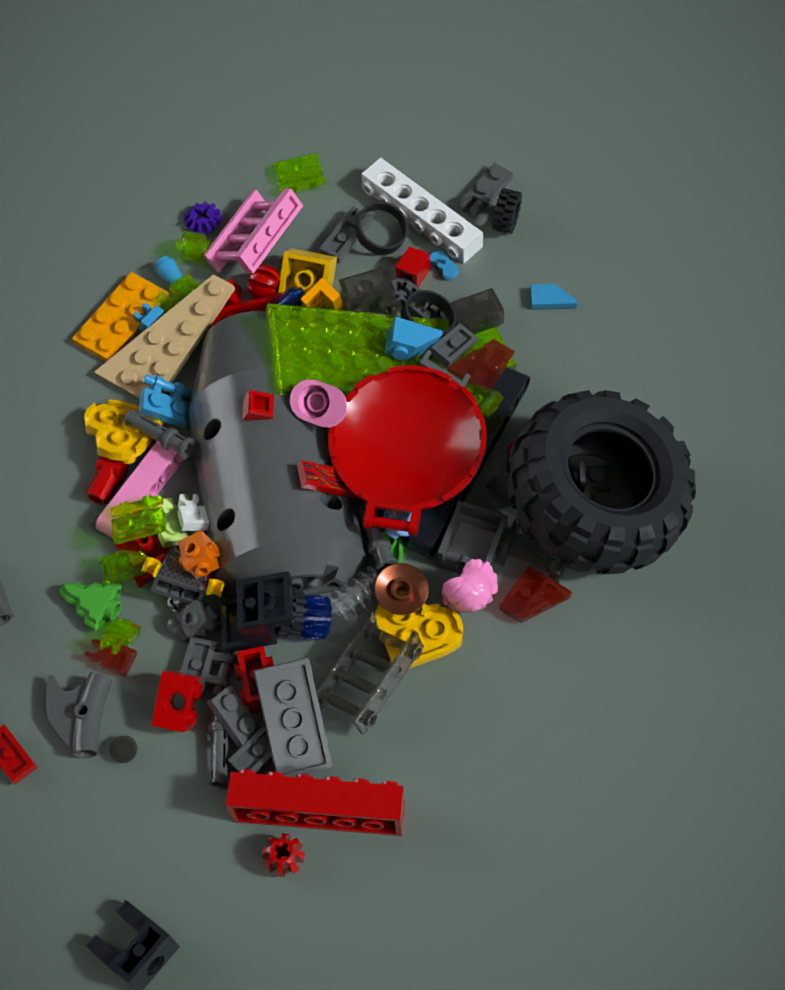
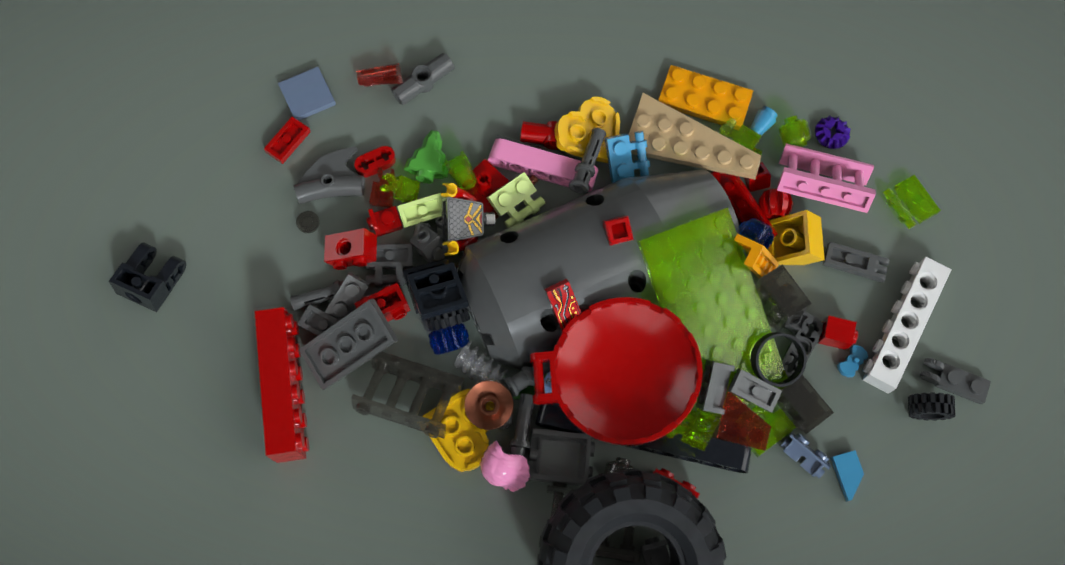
camera: 70 degrees right, 10 degrees up
(67, 662) = (375, 161): none -> red beam
(140, 524) = (494, 169): clear neon green plate -> none
(148, 319) = (706, 119): dark azure tile -> none
(150, 664) = (384, 221): none -> red bracket
(152, 617) = (421, 210): none -> yellowish green hinge
(191, 515) = (519, 210): white plate -> none
(198, 554) = (474, 225): orange brick -> none
(281, 846) = (235, 363): red piece -> none
(318, 403) = (634, 280): bright pink piece -> none
(393, 210) = (895, 297): black tyre -> none
(409, 339) = (740, 346): dark azure slope -> none
(428, 565) = (520, 443): none -> dark grey pin
(532, 320) = (814, 459): none -> sand blue hinge
(533, 595) = (518, 525): clear red wing -> none

